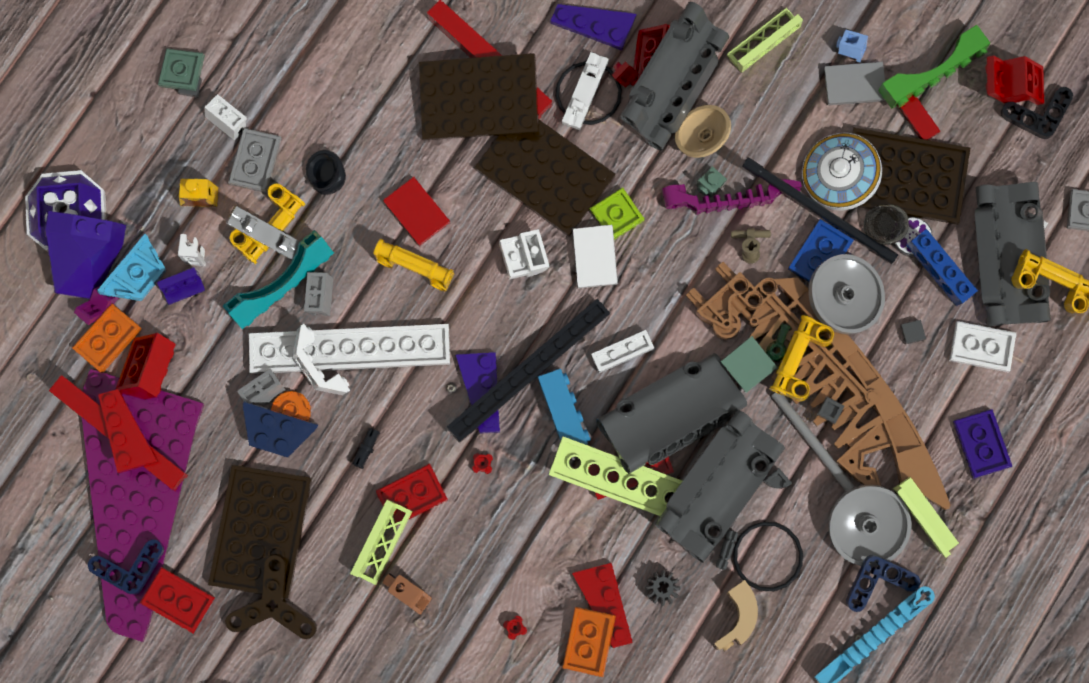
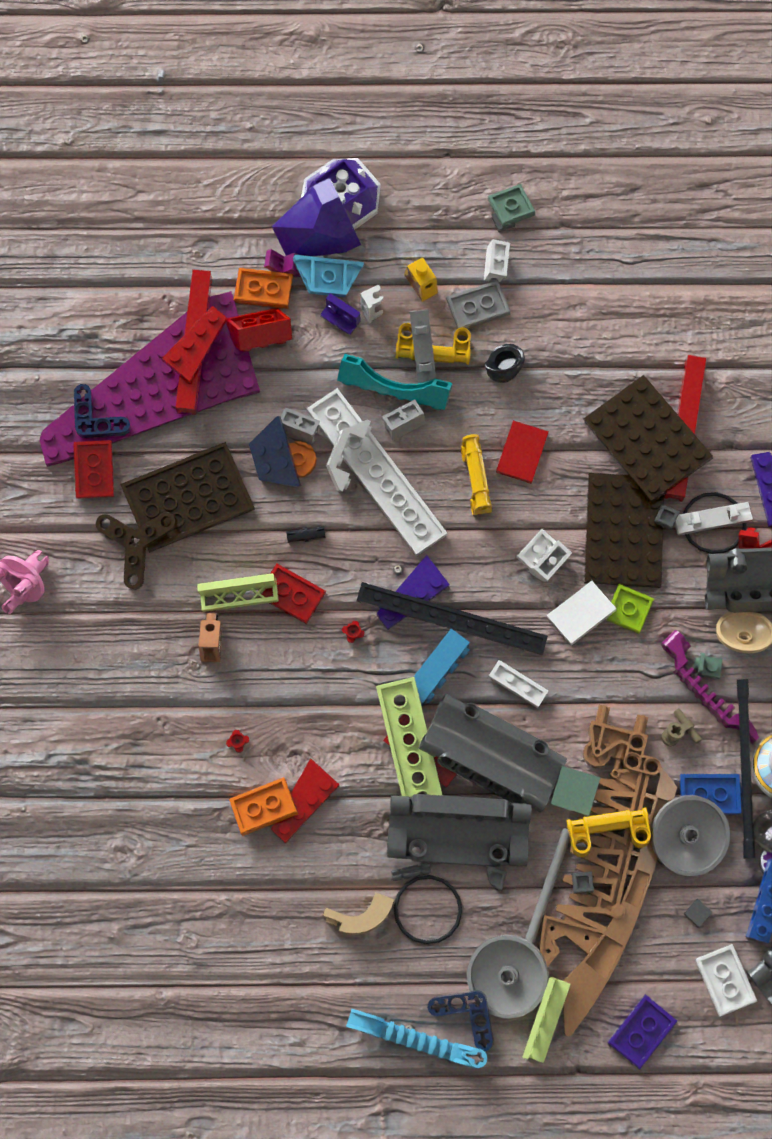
camera: 50 degrees right, 5 degrees down
(559, 128) = (666, 517): none -> dark grey tile
(665, 580) = (347, 844): dark grey gear -> none
(778, 343) = (609, 804): clear green bar -> none

